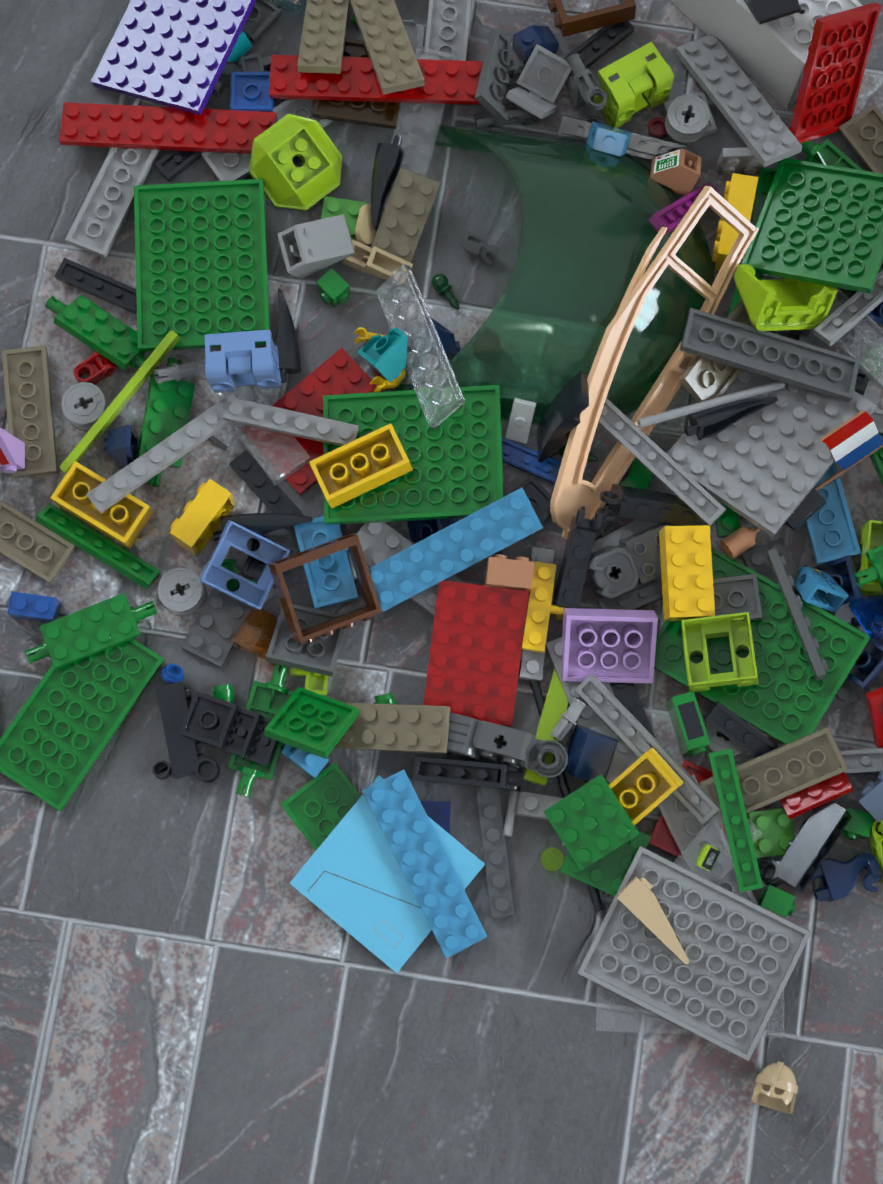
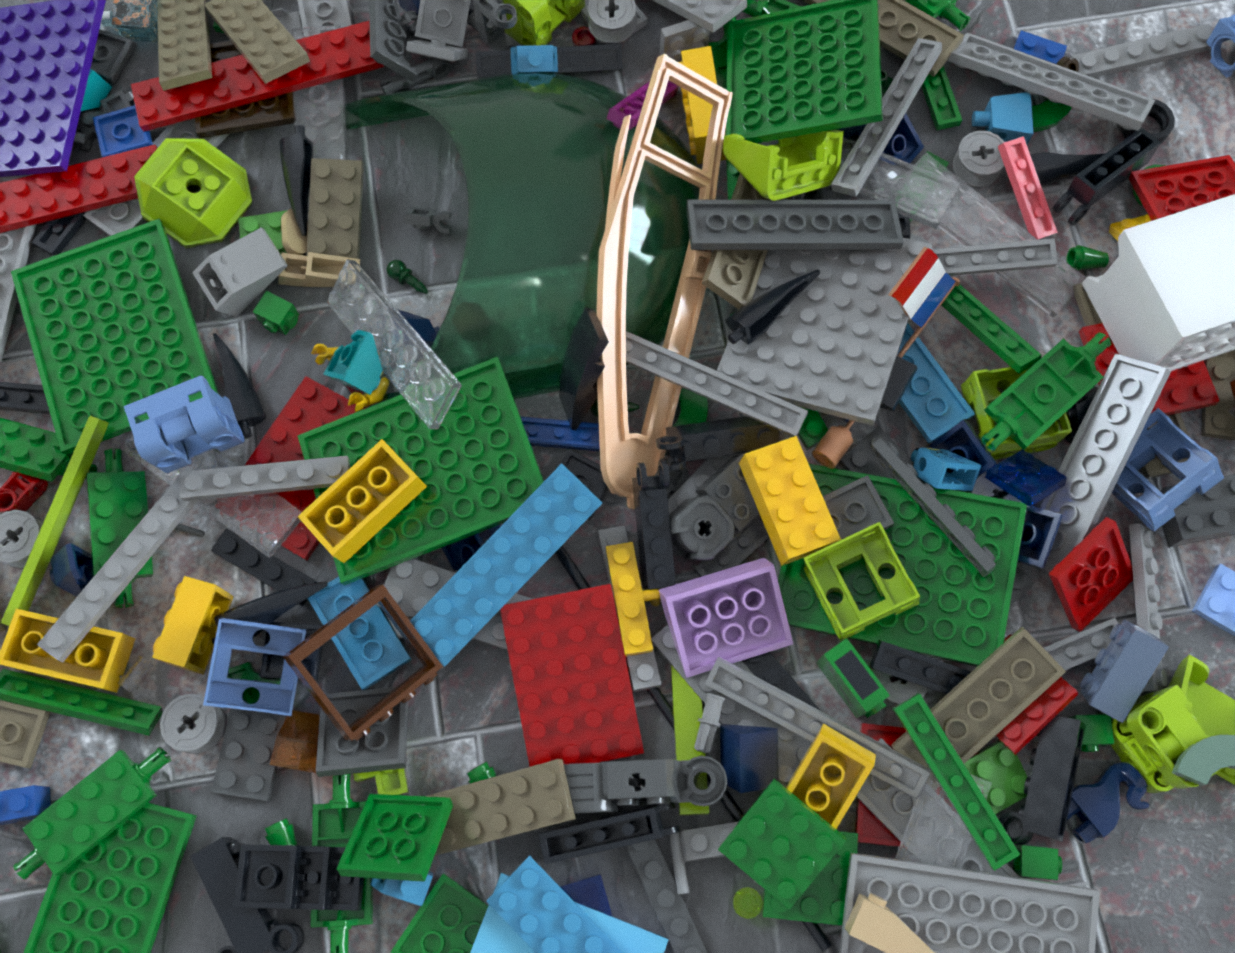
camera: 15 degrees left, 5 degrees down
(172, 673) = (209, 830): blue plate -> none
(175, 372) = (112, 464): light grey axle -> none
(508, 572) = (580, 569): nougat slope -> none
(520, 420) = (536, 390): white plate -> none
(676, 170) = (620, 69): nougat slope -> none
(693, 408) = (749, 297): light grey piece -> none
(707, 857) = (937, 838): slope -> none

